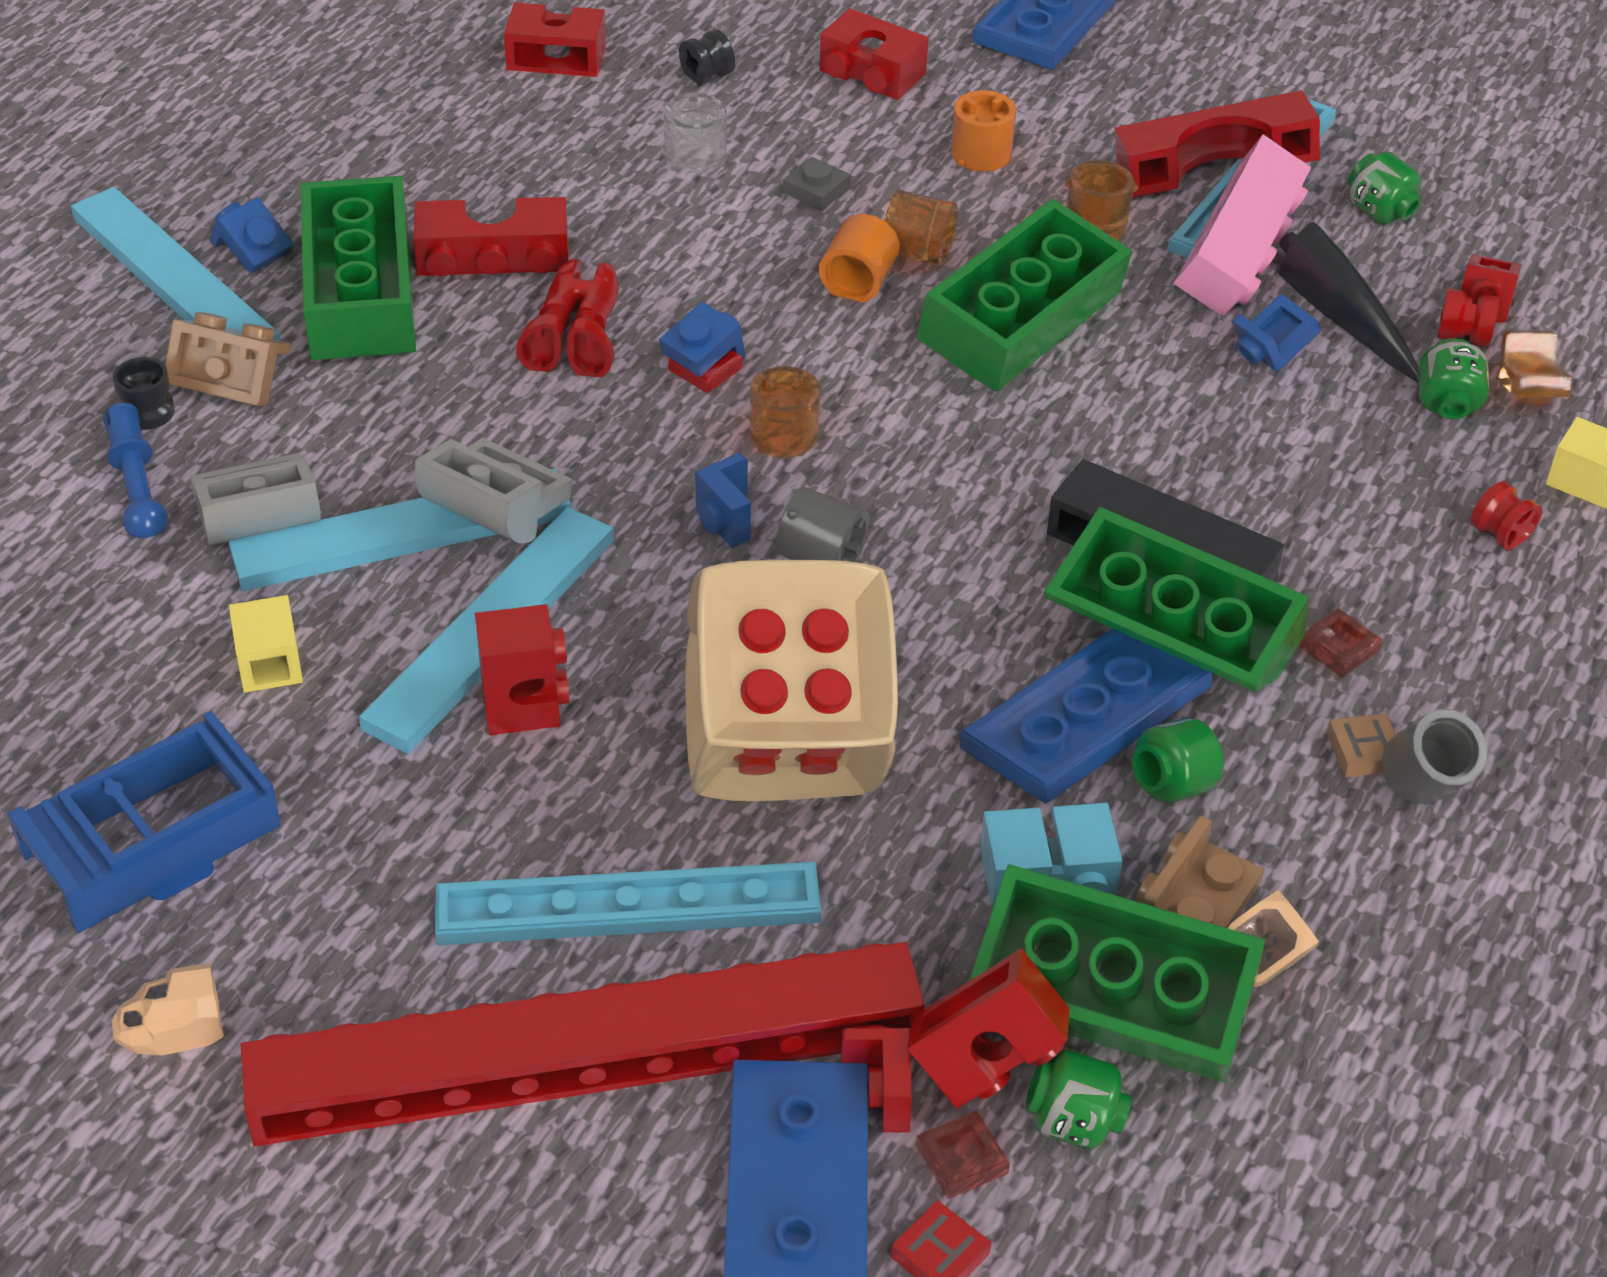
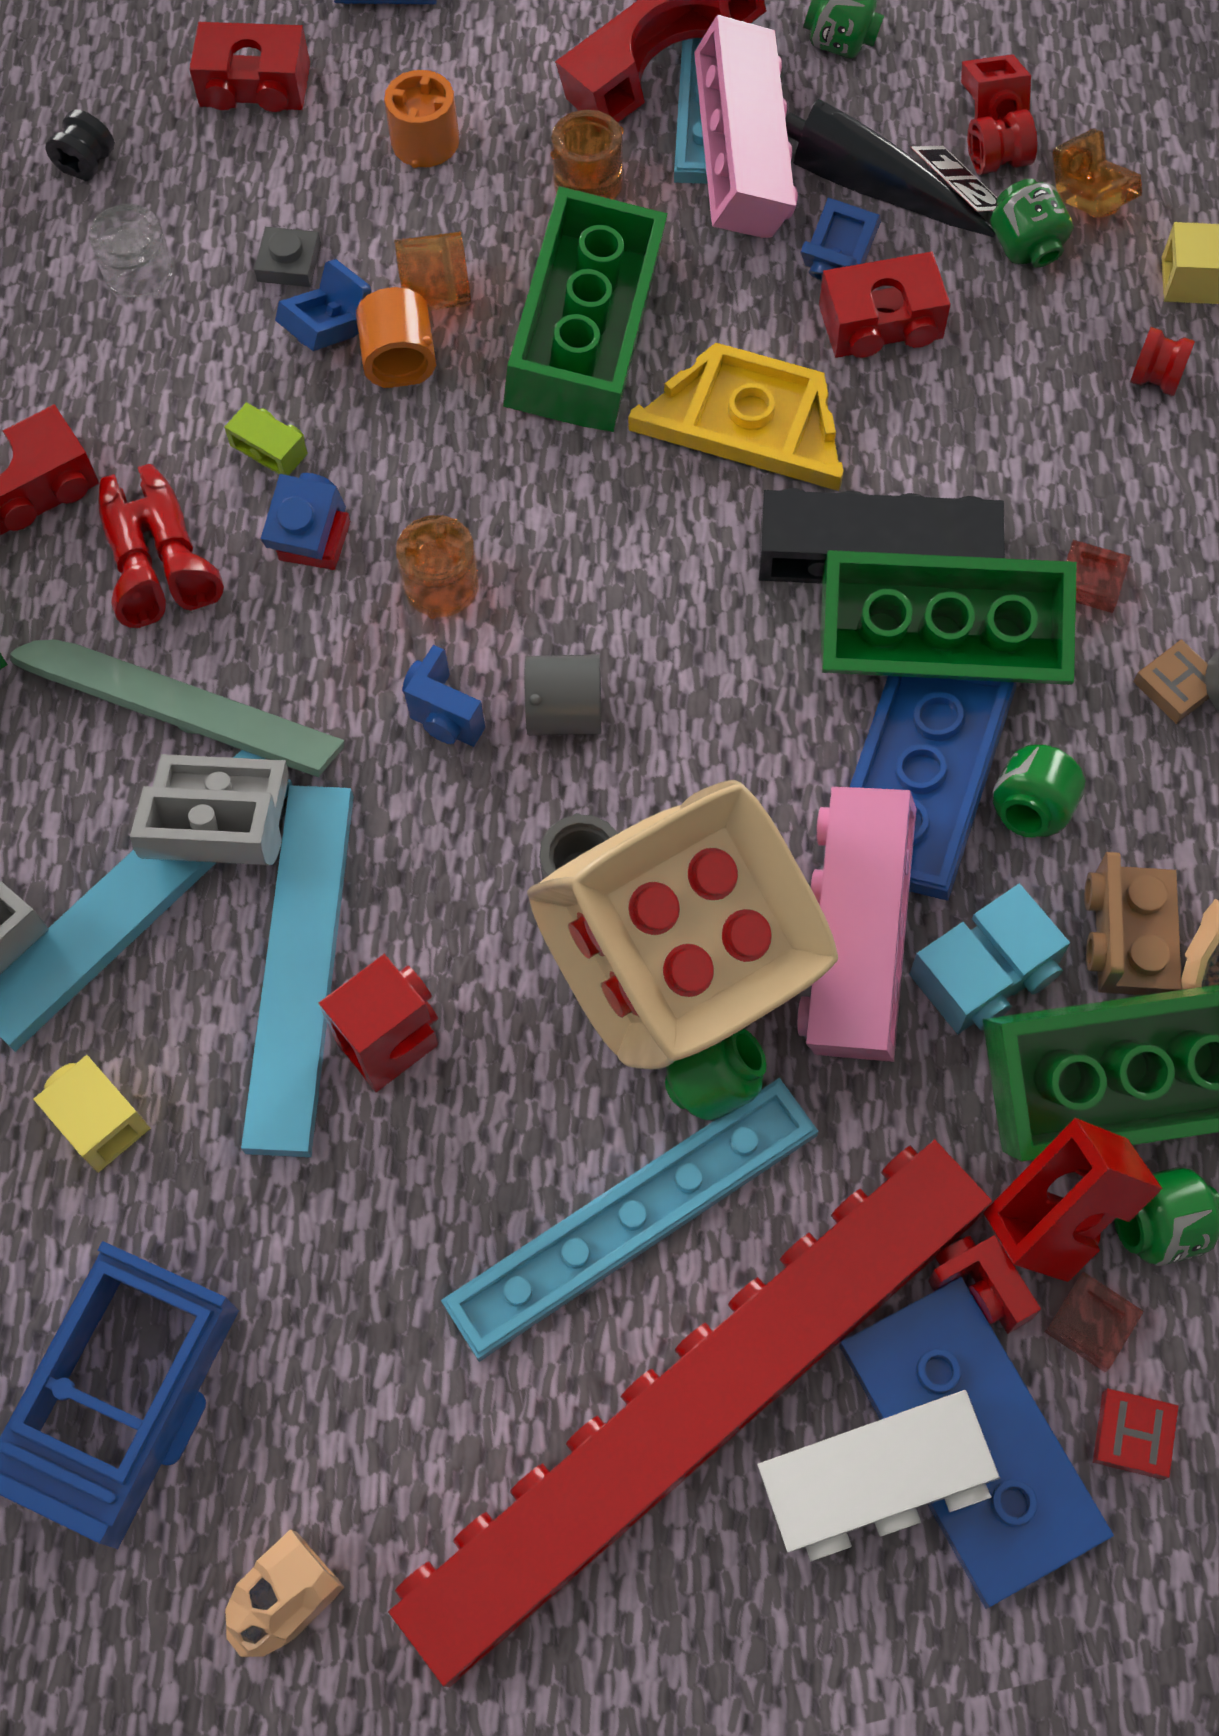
camera: 25 degrees left, 20 degrees up
(526, 426) = (179, 704): none -> sand green piece
(695, 1148) = (879, 1475): none -> white brick
(712, 284) = (266, 439): none -> lime piece
(762, 823) = (718, 1077): none -> green head
(815, 227) = (325, 313): none -> blue bracket
(952, 775) = (866, 907): none -> bright pink brick
(1114, 415) = (748, 413): none -> yellow wing
(1301, 404) = (866, 320): none -> red brick
(1411, 325) = (958, 177): none -> sticker

